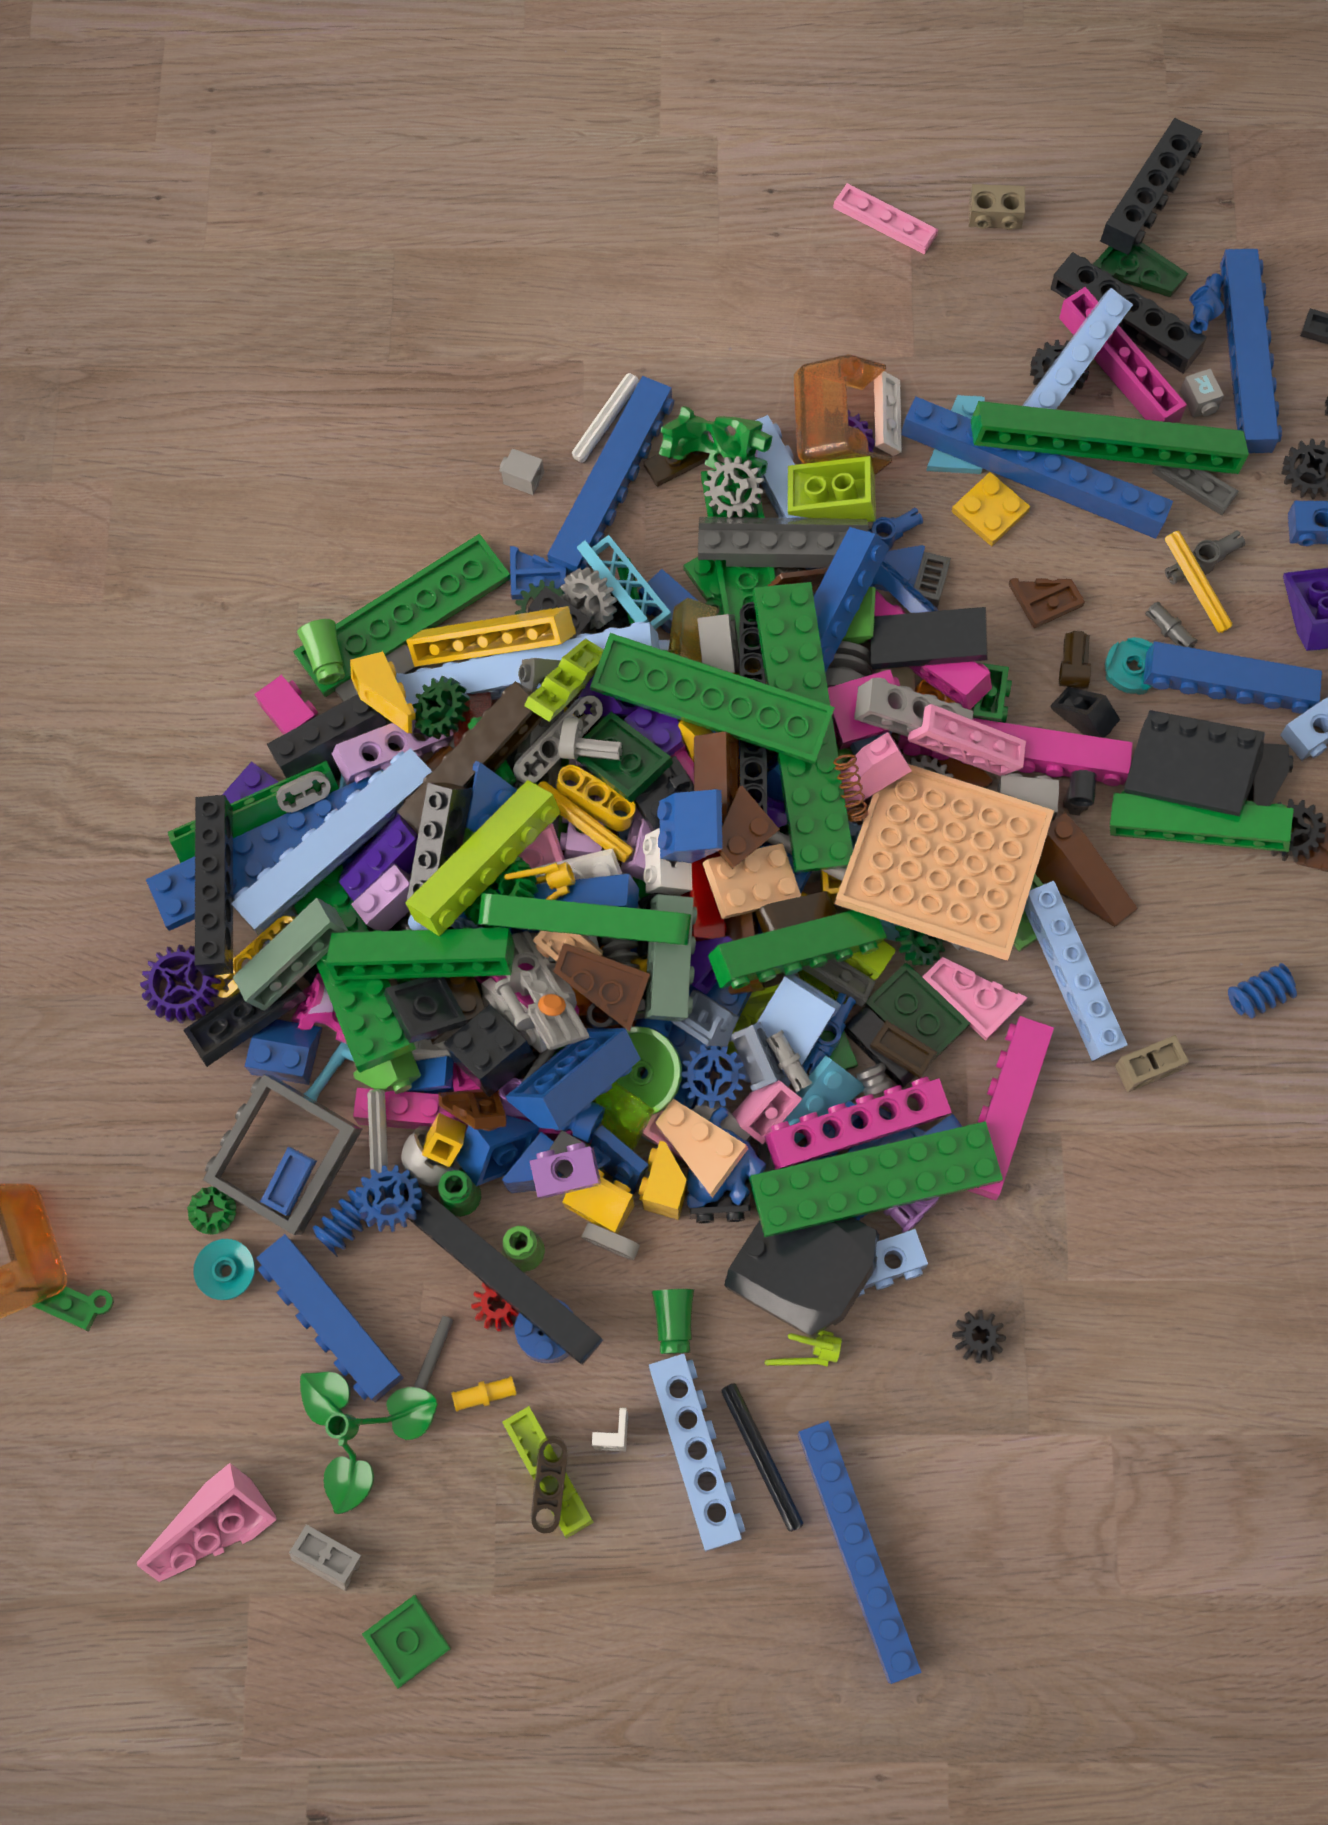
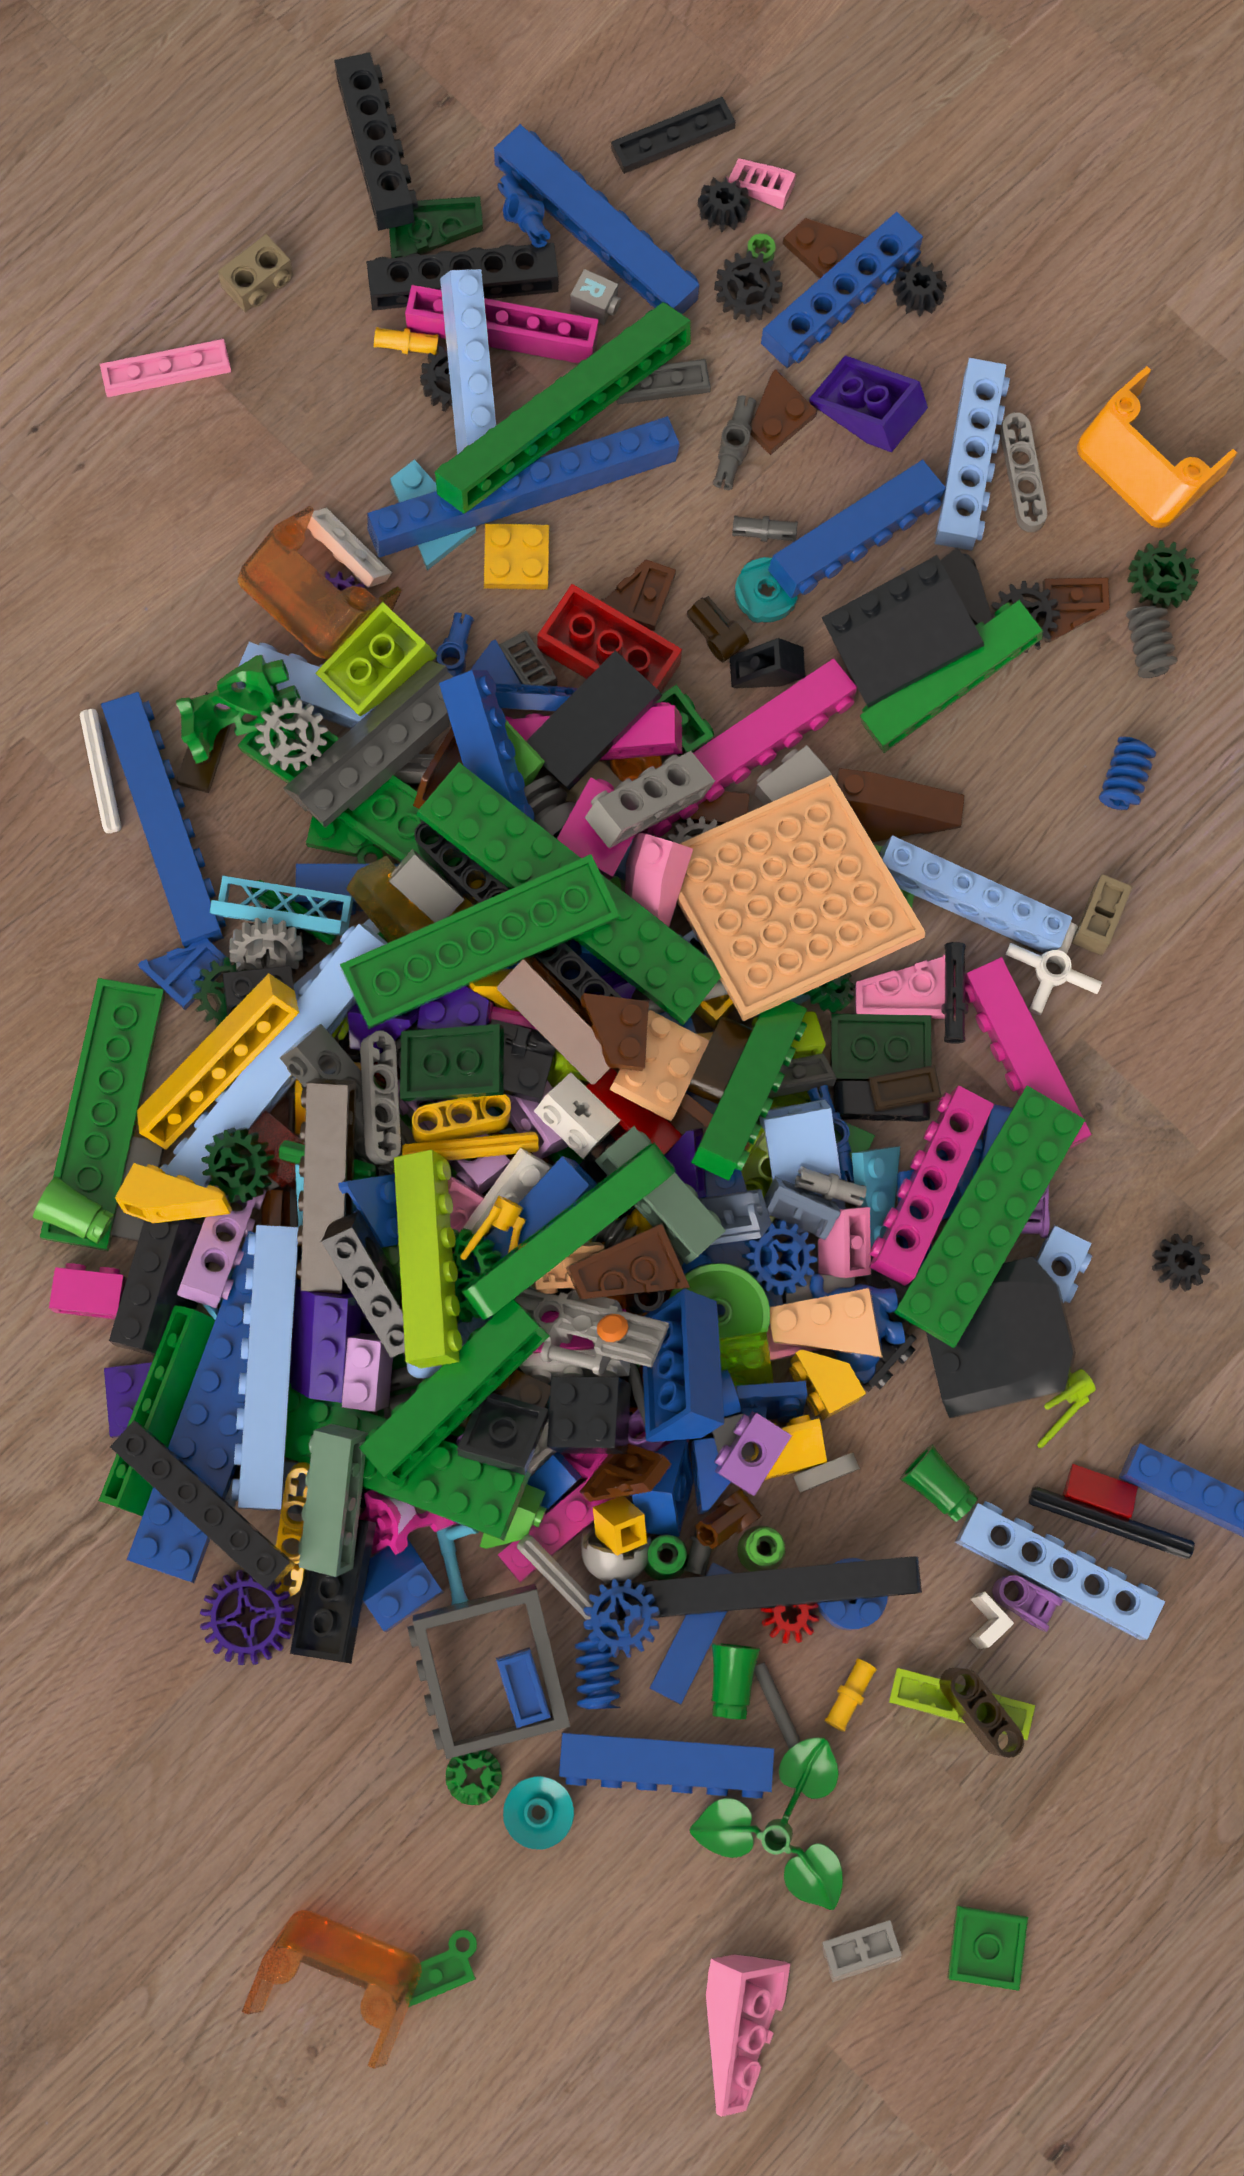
camera: 55 degrees left, 5 degrees up
(305, 798) = (190, 1351): light grey beam -> none
(414, 1265) = (688, 1650): none -> blue tile
(421, 1308) = (732, 1679): none -> green plant
(482, 1212) = (698, 1557): none -> dark grey pin
(522, 471) = (76, 887): light grey brick -> none
(523, 1208) = (731, 1517): none -> reddish brown piece
(566, 680) = (346, 1040): lime slope -> none
(573, 745) = (405, 1091): light grey piece -> none
(655, 1452) = (1032, 1604): none -> medium lavender piece
(690, 825) = (575, 1066): blue slope -> none
(775, 1430) = (1100, 1491): none -> red slope
(855, 811) = (681, 920): dark orange piece -> none
(874, 1079) = (904, 1135): flat silver wheel -> none
(969, 741) = (712, 779): bright pink fence -> none
(989, 583) = (587, 631): none -> red brick
(990, 1029) = (954, 1029): none -> black pin
(1050, 321) = (405, 341): none -> yellow pin
(1078, 1078) = (1050, 980): none -> white bar
(1080, 792) = (834, 739): black piece -> none
(1198, 581) = (752, 469): yellow axle -> none
(1255, 566) = (780, 414): none -> reddish brown wing

